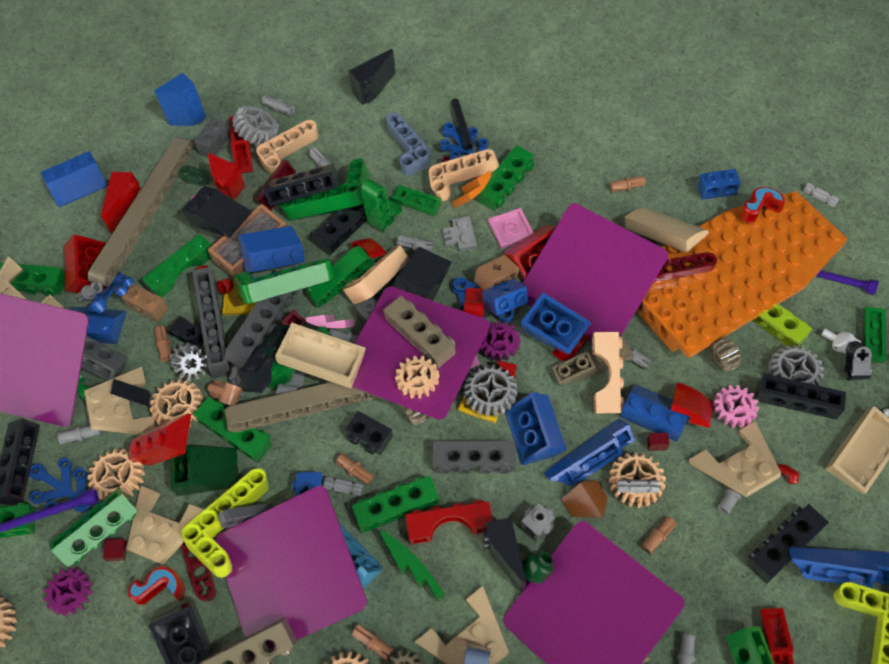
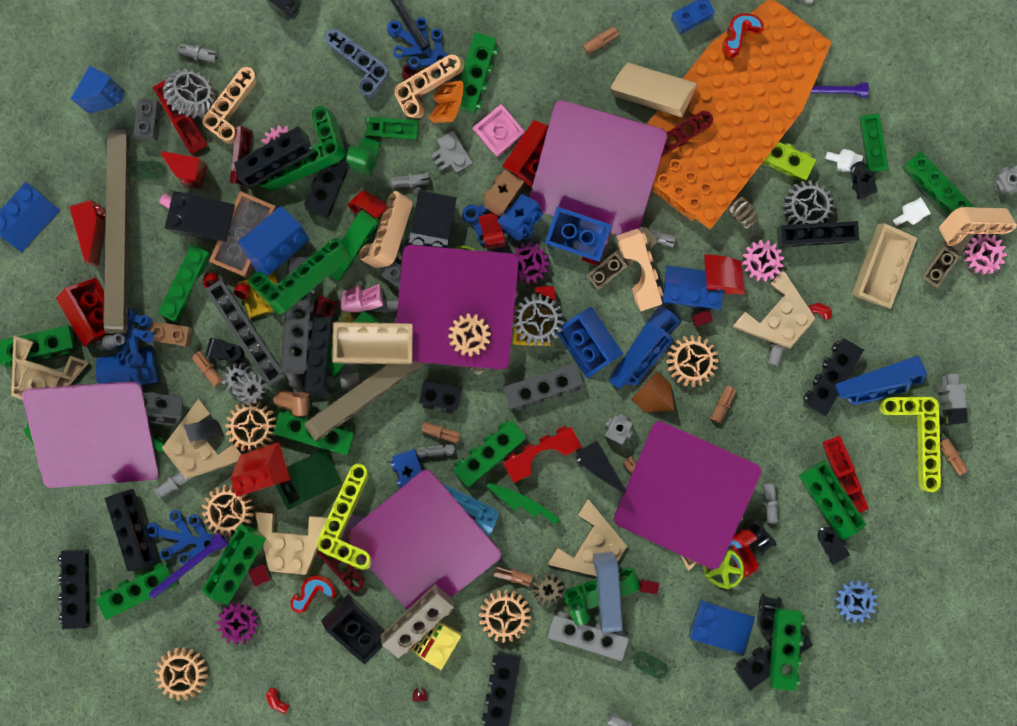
camera: 20 degrees left, 25 degrees up
(235, 516) = (364, 510): dark grey beam -> none
(319, 157) = (276, 110): light grey axle -> none
(438, 352) = (431, 270): dark tan brick -> none
(538, 566) = (631, 472): dark green head -> none
(638, 486) = (696, 371): light grey axle -> none

